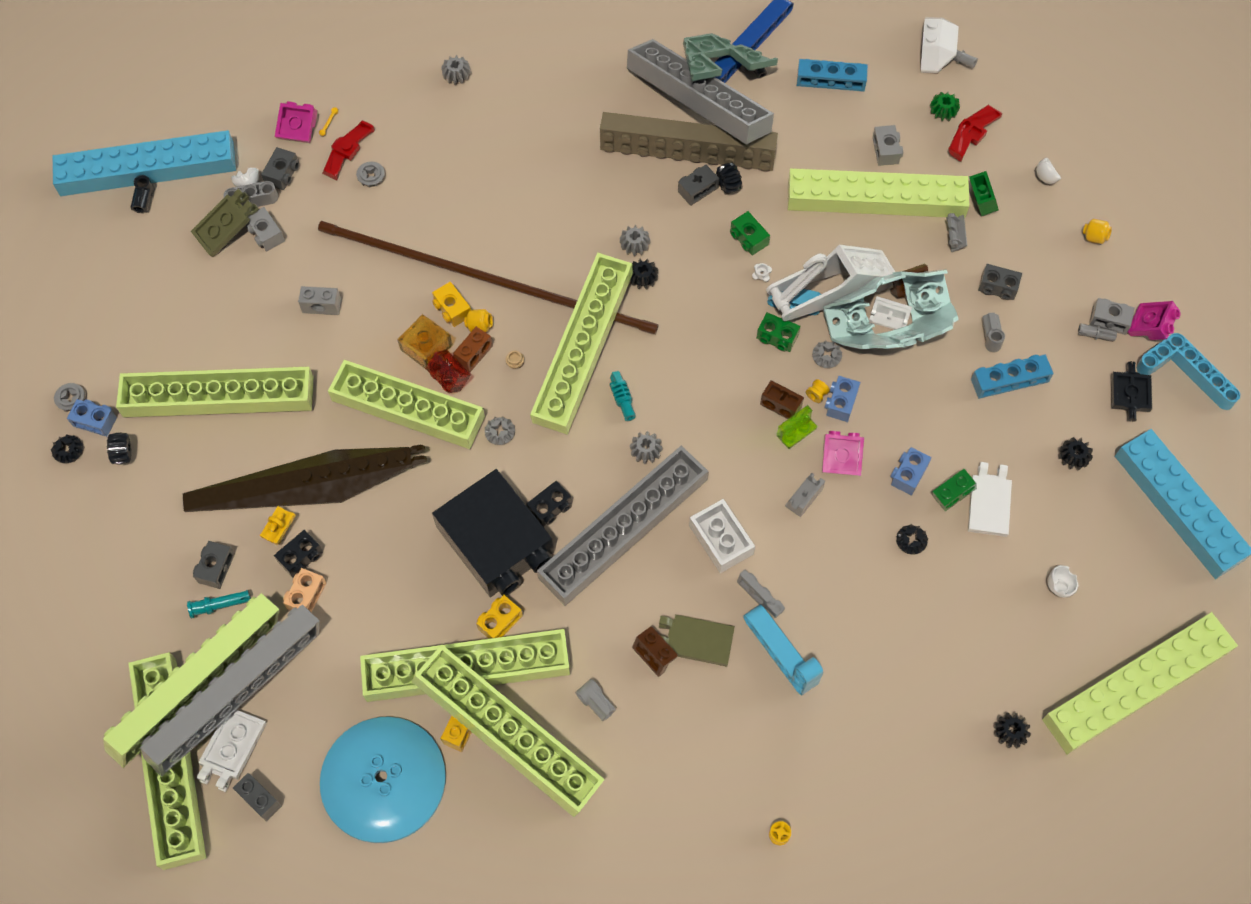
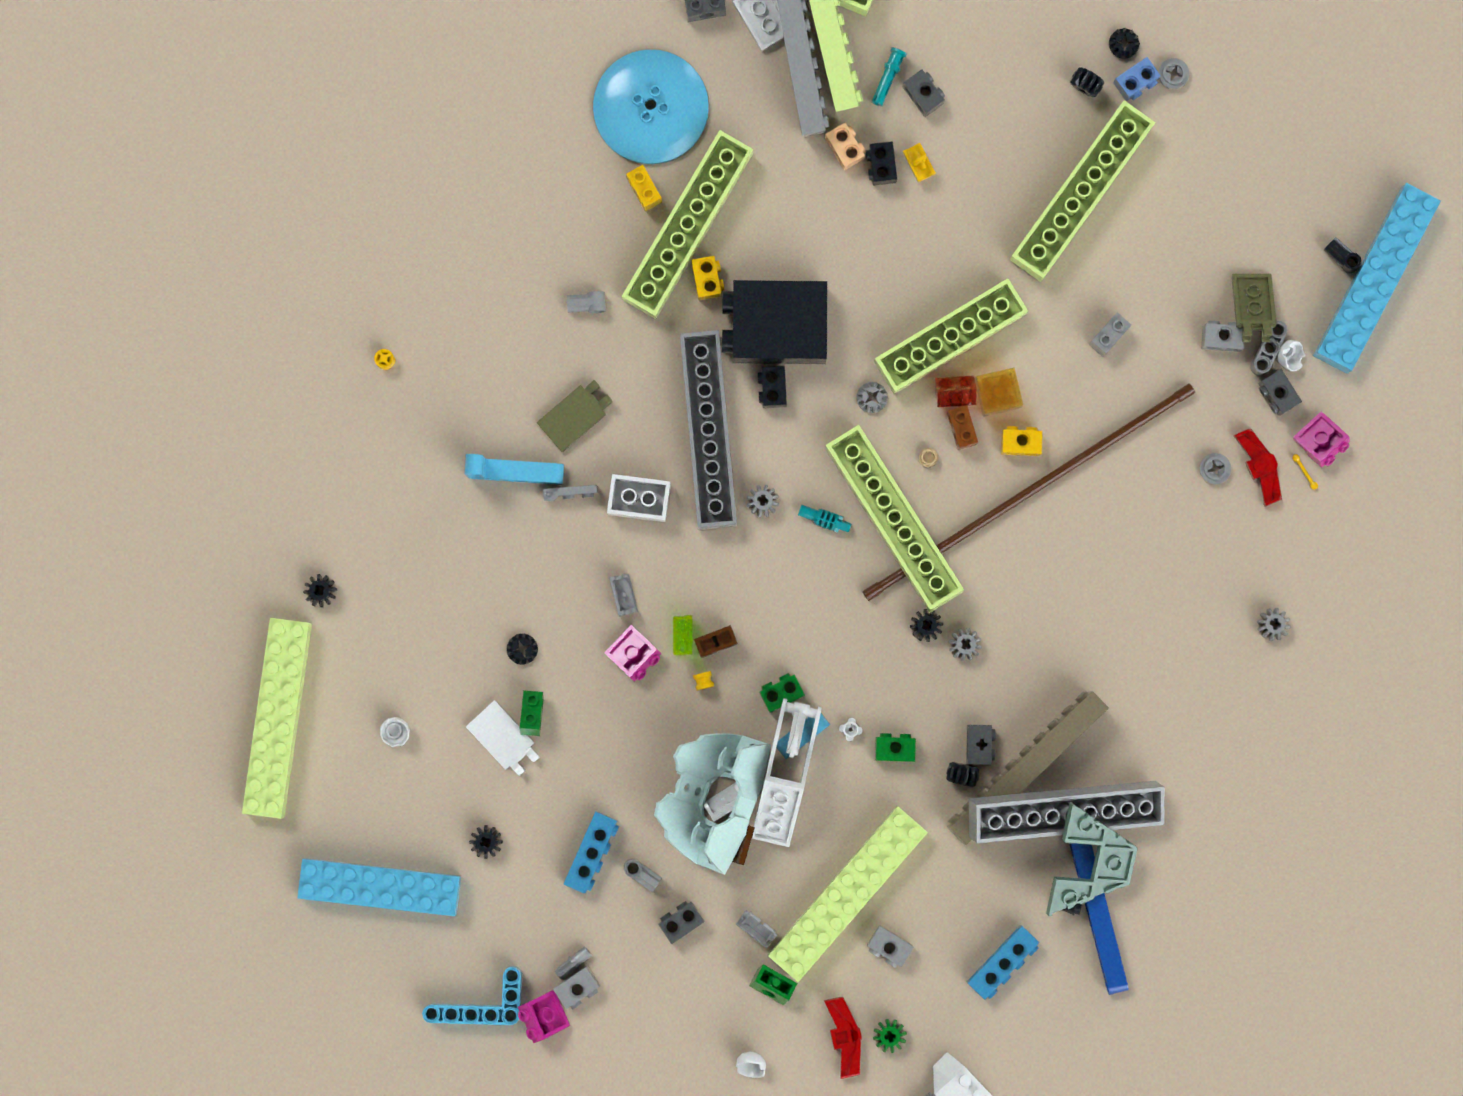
camera: 125 degrees right, 20 degrees up
(308, 481) = (943, 219): dark brown hinge -> none
(478, 318) = (987, 452): yellow head -> none
(507, 730) = (607, 214): yellowish green brick -> none
(654, 650) = (588, 375): reddish brown bracket -> none
(826, 361) = (724, 725): light grey gear -> none
(845, 399) = (676, 697): medium blue brick -> none
(913, 472) = (572, 697): medium blue brick -> none
(1097, 231) = (661, 1052): yellow head -> none
(1131, 391) = (500, 939): black plate -> none

